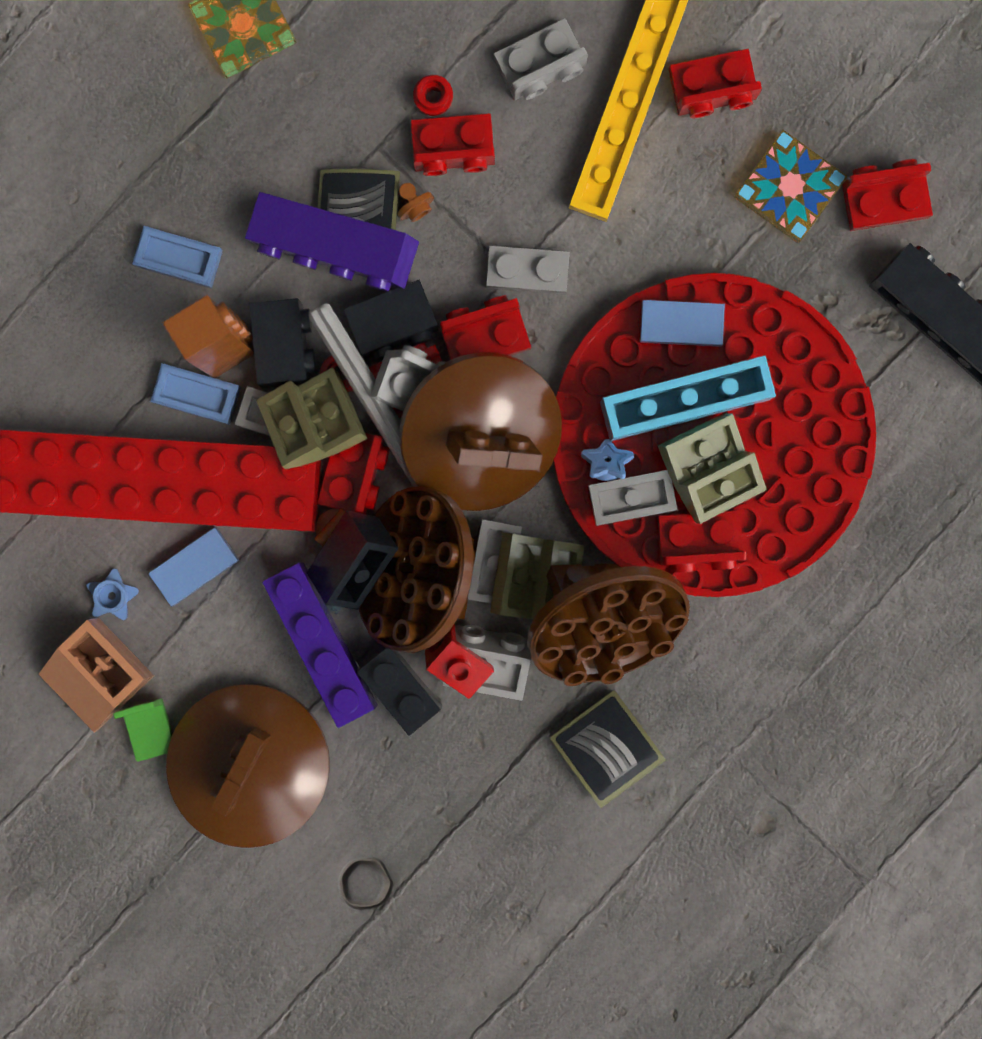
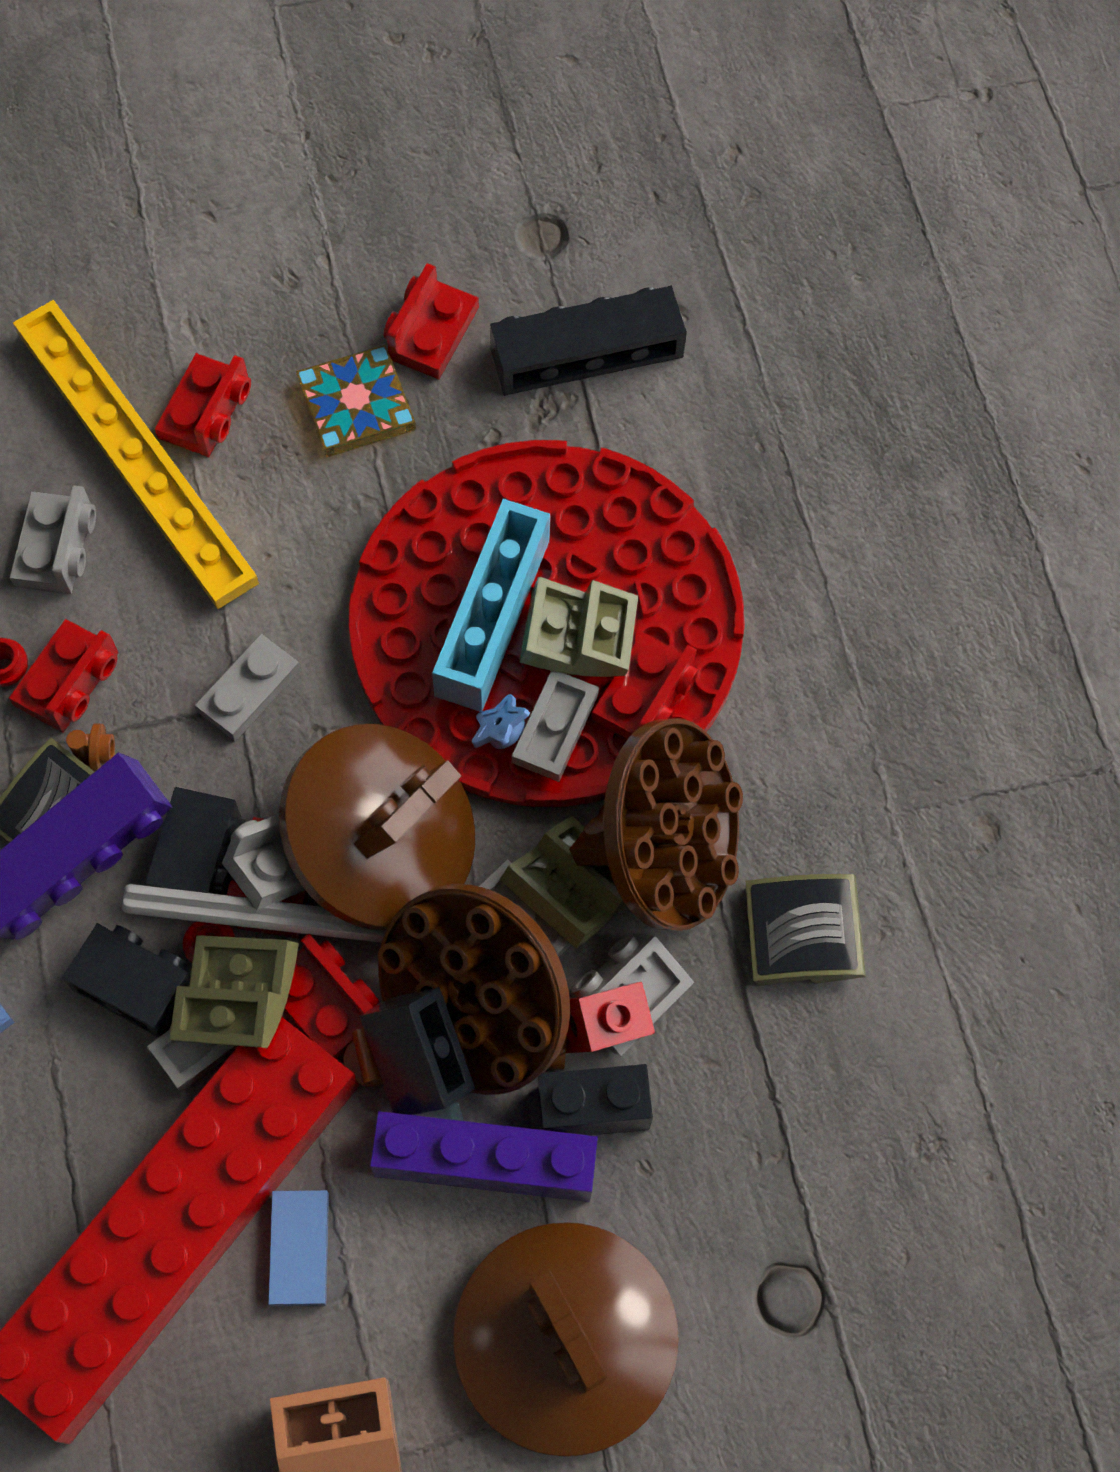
camera: 65 degrees left, 20 degrees down
(103, 603) = (250, 1360): medium blue plate -> none
(147, 728) = (444, 1430): bright green bracket -> none
(195, 394) = (112, 1115): medium blue tile -> none
(210, 336) = (64, 1023): dark orange brick -> none
(490, 329) = (274, 751): red bracket -> none
(682, 323) = (413, 570): medium blue tile -> none

